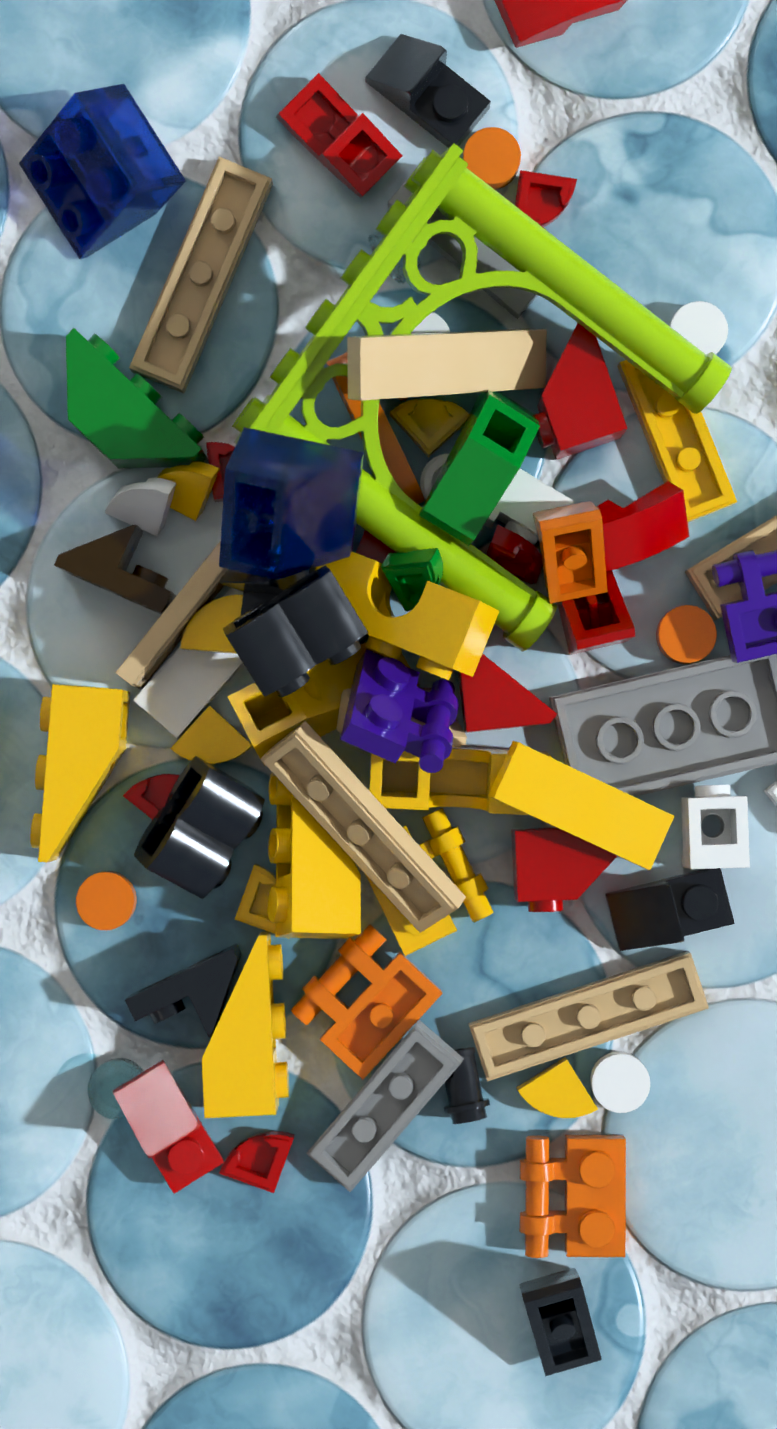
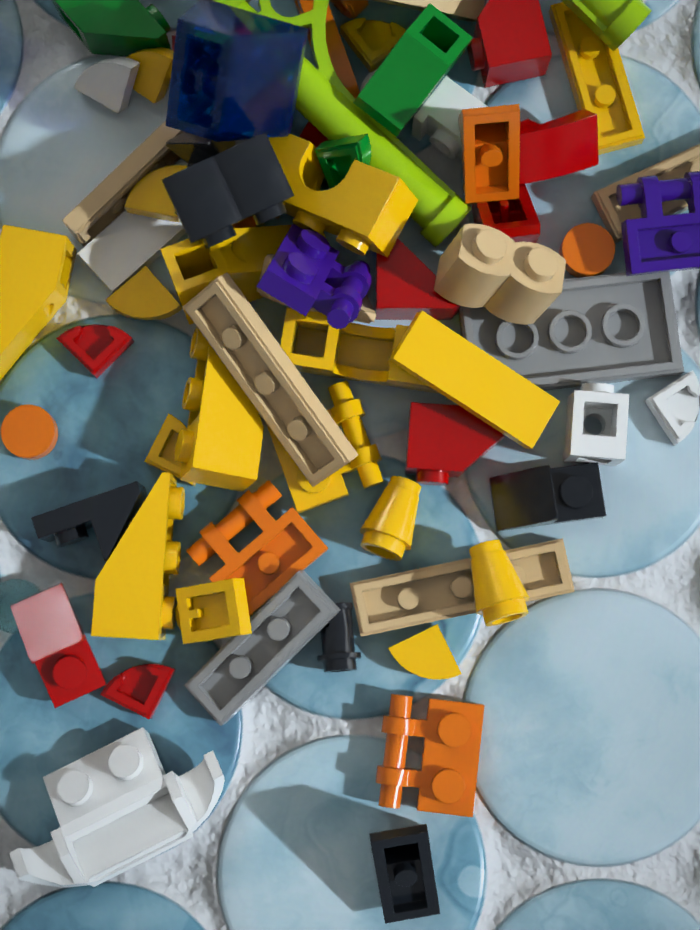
camera: 10 degrees right, 5 degrees down
(105, 566) = (69, 129): dark brown slope -> none
(200, 828) = (123, 371): black brick -> none
(254, 1294) = (118, 813): none -> white plate
(329, 1077) = (213, 611): none -> yellow bracket
(507, 953) = (392, 520): none -> yellow cone
(515, 555) = (440, 158): red tile -> none
(600, 686) = (497, 273): none -> tan brick
(620, 1082) = (484, 652): white tile -> none
(625, 1014) = (496, 585): none -> yellow cone

